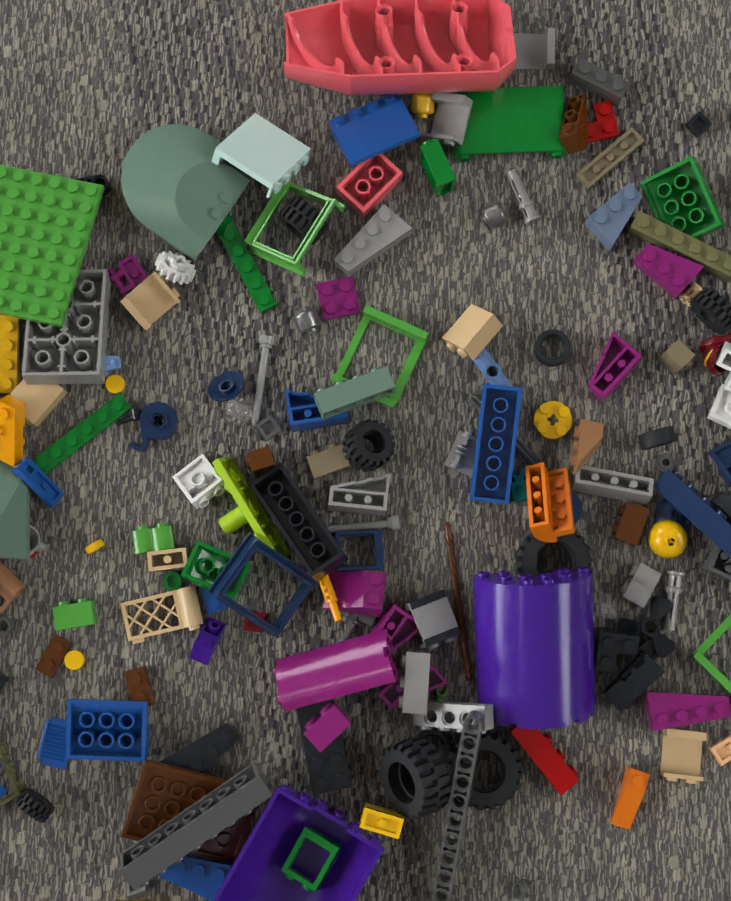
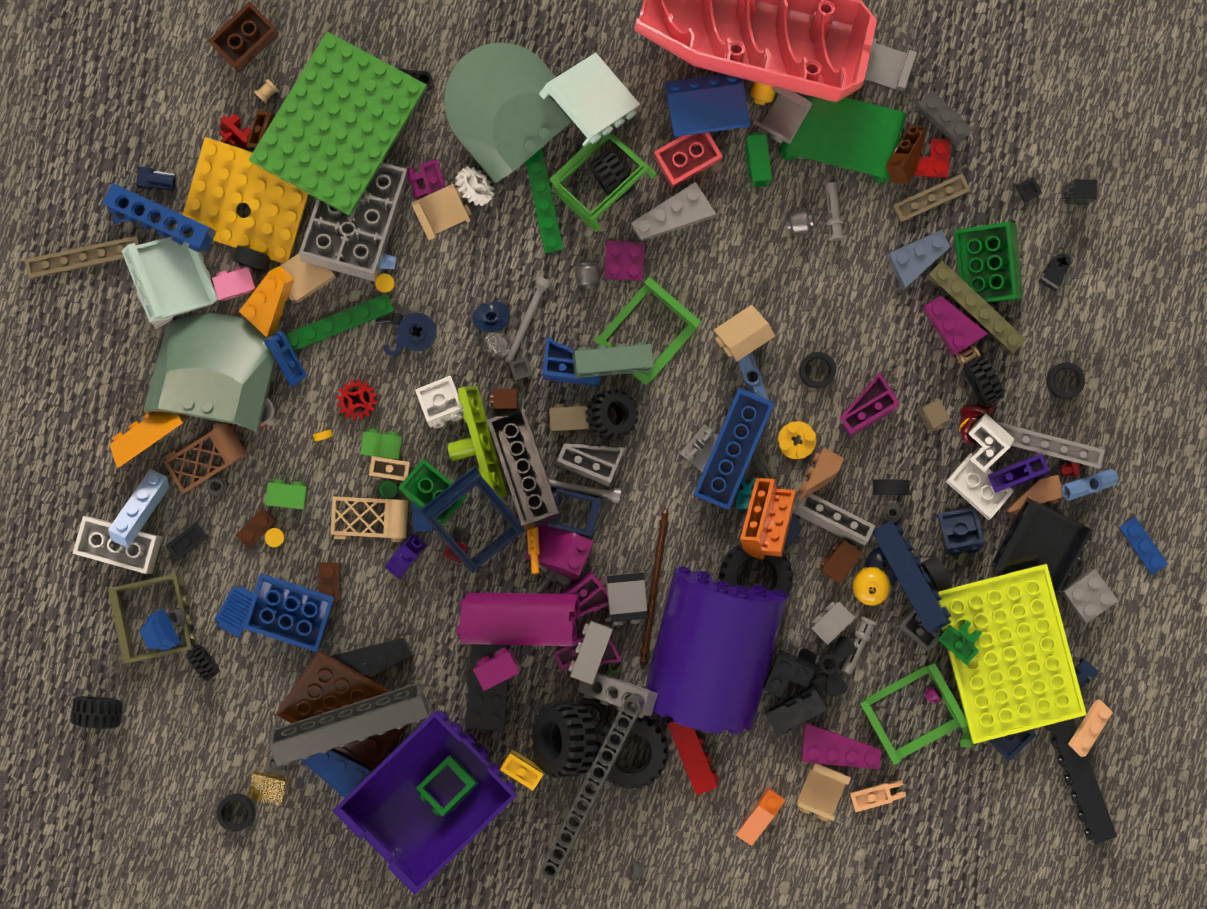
camera: 10 degrees right, 5 degrees up
(120, 494) = (361, 391): none -> red gear

